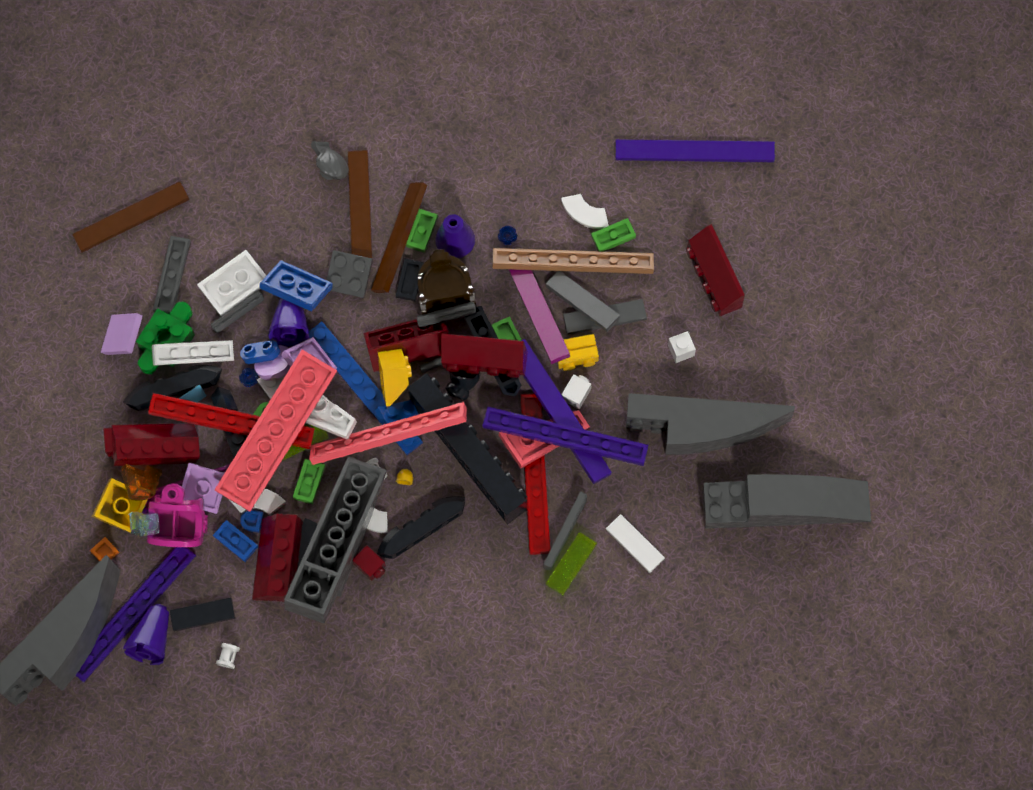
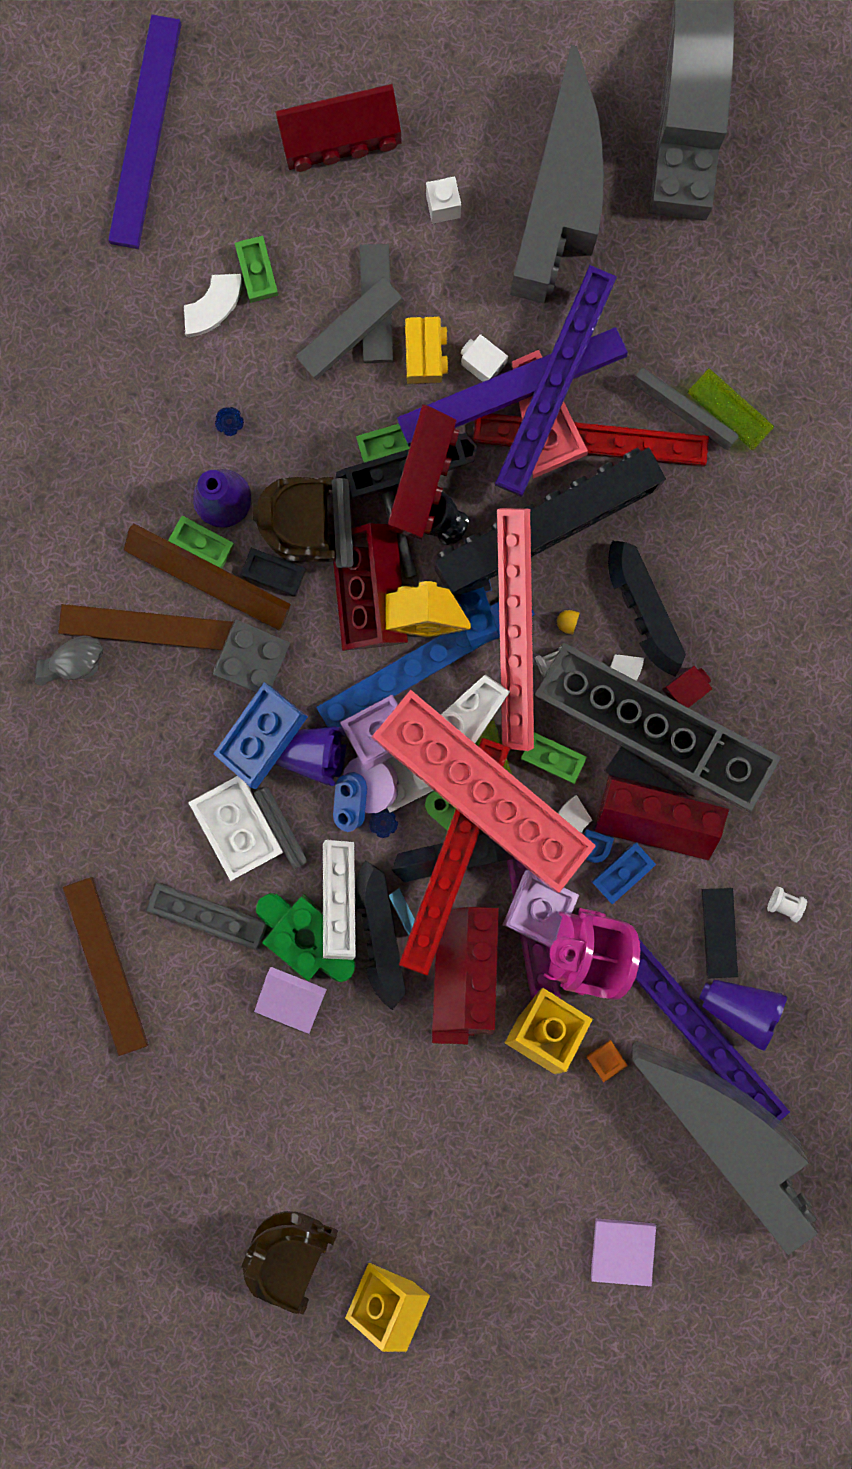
camera: 85 degrees left, 15 degrees up
(140, 483) = (523, 998): clear orange slope -> none
(144, 524) = (591, 1003): clear light blue bracket -> none
(540, 315) = (356, 392): magenta tile -> none
(573, 261) = (286, 333): medium nougat tile -> none
(635, 543) = (713, 317): white tile -> none

